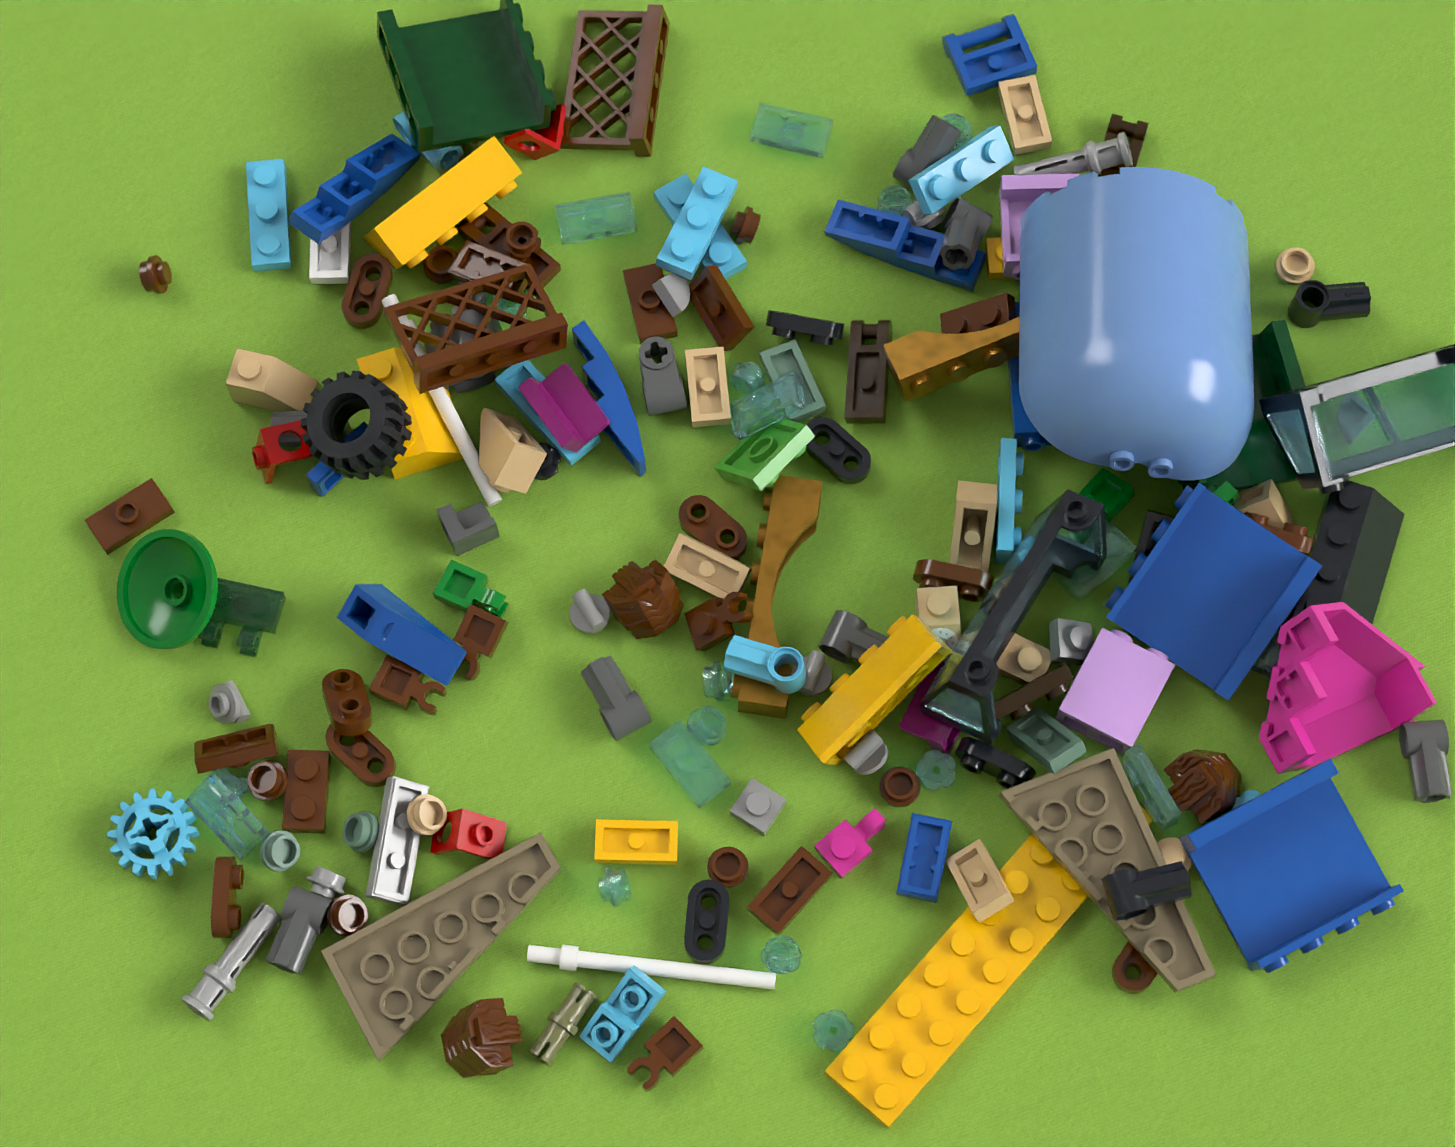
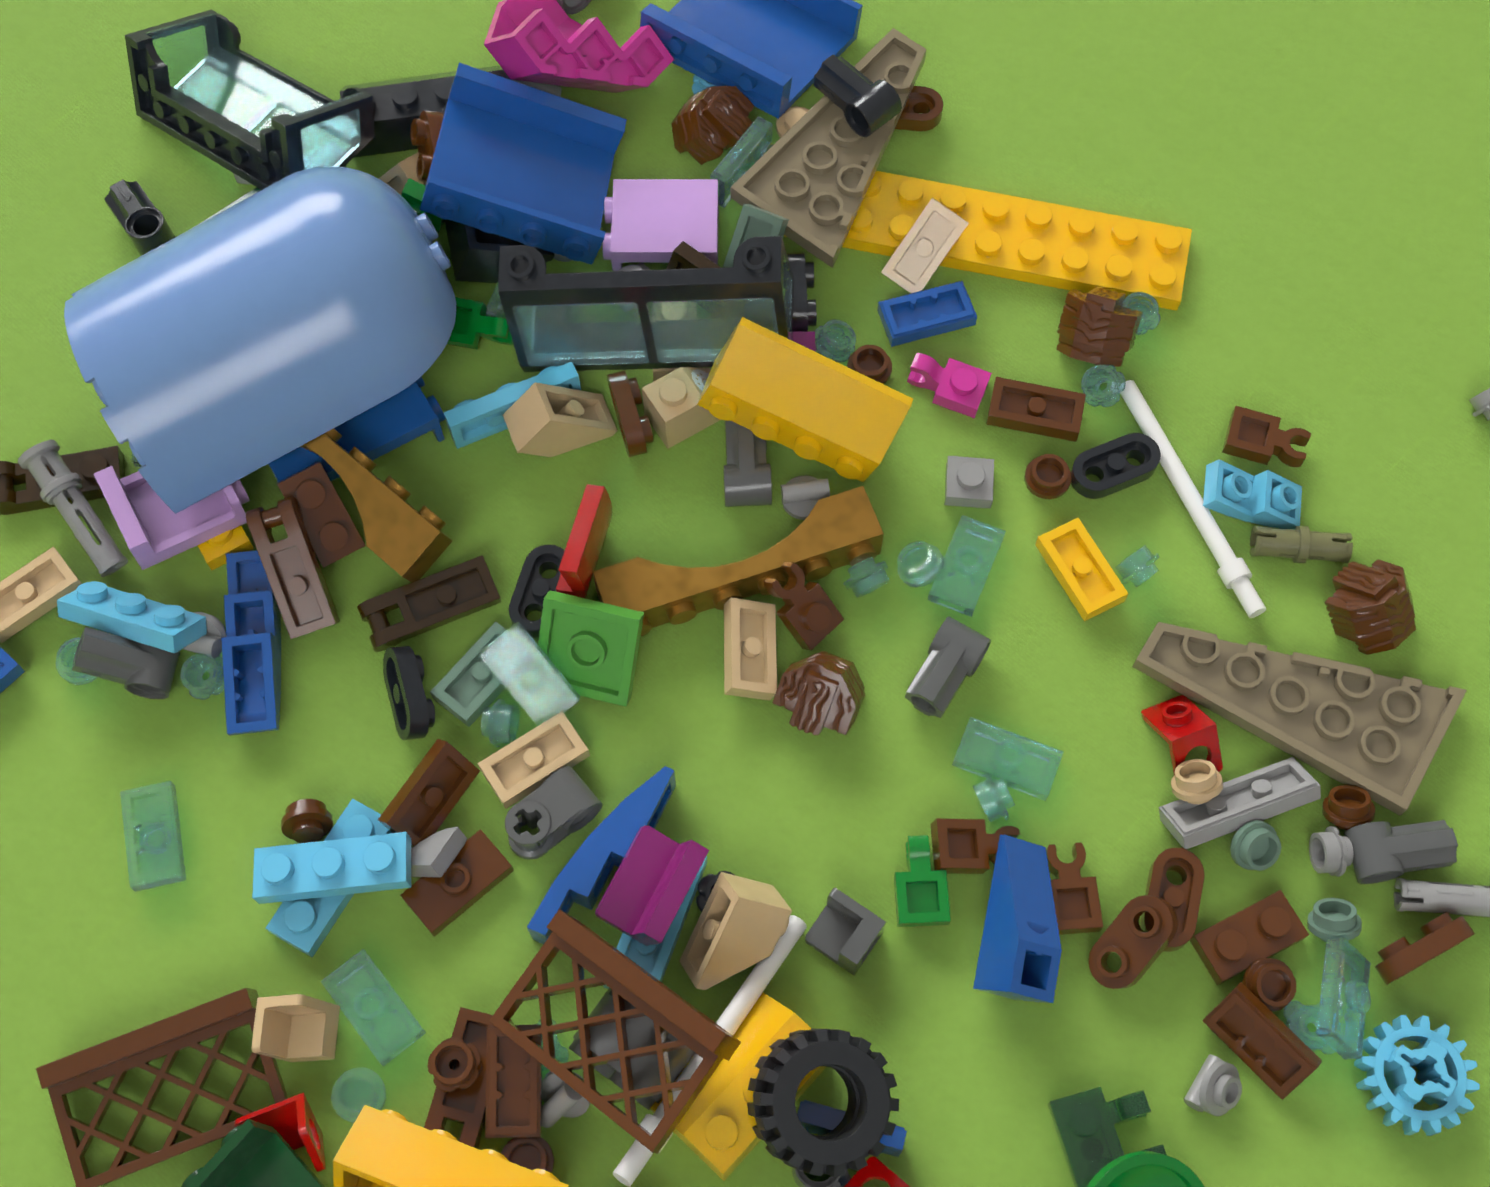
camera: 120 degrees left, 5 degrees down
(500, 673) = (994, 798): none -> clear light blue plate
(525, 705) = (1006, 755): none -> clear light blue plate
(543, 186) = (354, 1090): none -> clear light blue plate
(589, 612) = (868, 744): light grey plate -> none
(605, 163) = (295, 1028): none -> tan panel
(712, 526) = (696, 671): reddish brown plate -> none
(762, 661) = (836, 514): medium azure piece -> none
(833, 980) = (1097, 326): none -> reddish brown hair
(842, 481) = (585, 542): none -> red slope
(941, 284) = (292, 568): none -> reddish brown plate
(964, 230) = (205, 579): dark grey piece -> none
(1294, 266) = (105, 262): tan plate -> none

